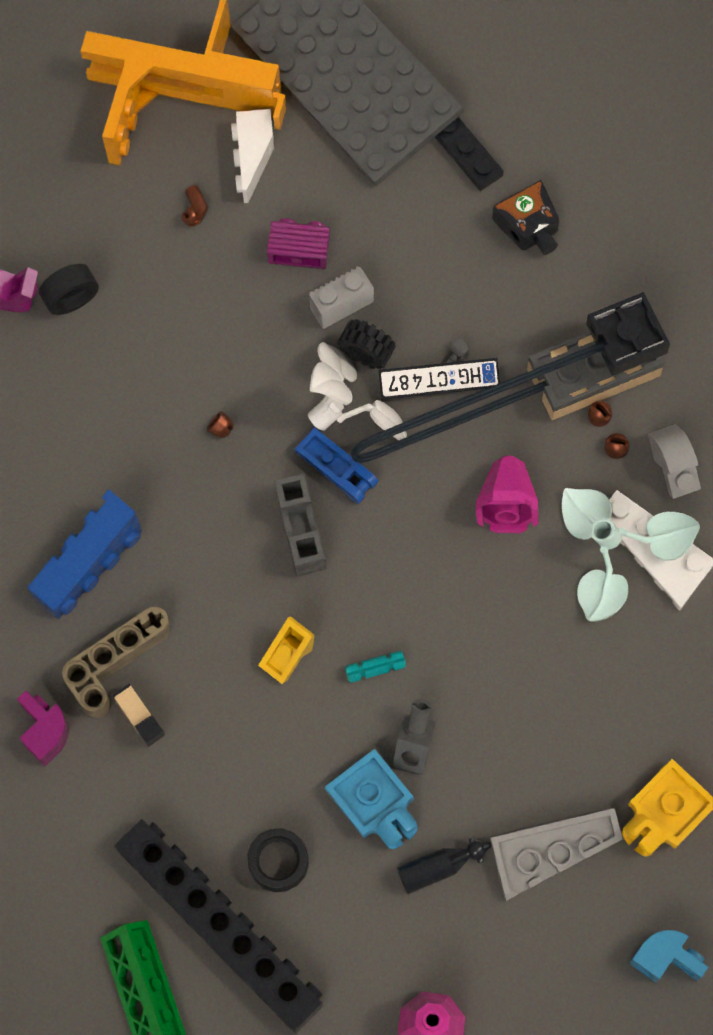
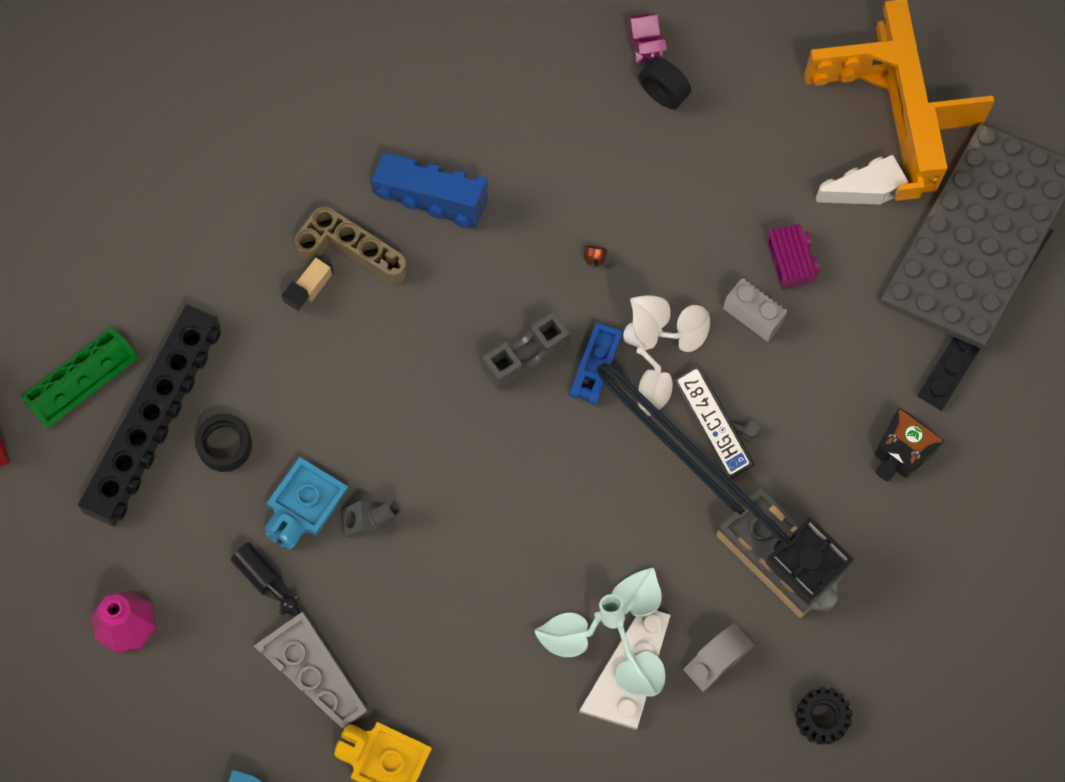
camera: 65 degrees right, 0 degrees up
(50, 731) = (273, 219): magenta brick -> none
(197, 209) = (790, 162): copper arm -> none
(287, 650) = (407, 382): yellow slope -> none
(366, 344) = (717, 345): black tyre -> none
(375, 666) = (425, 462): teal axle -> none
(507, 498) = (622, 518): dark pink cone -> none
(596, 417) = (747, 578): copper hinge -> none
(616, 450) = (708, 602): copper hinge -> none

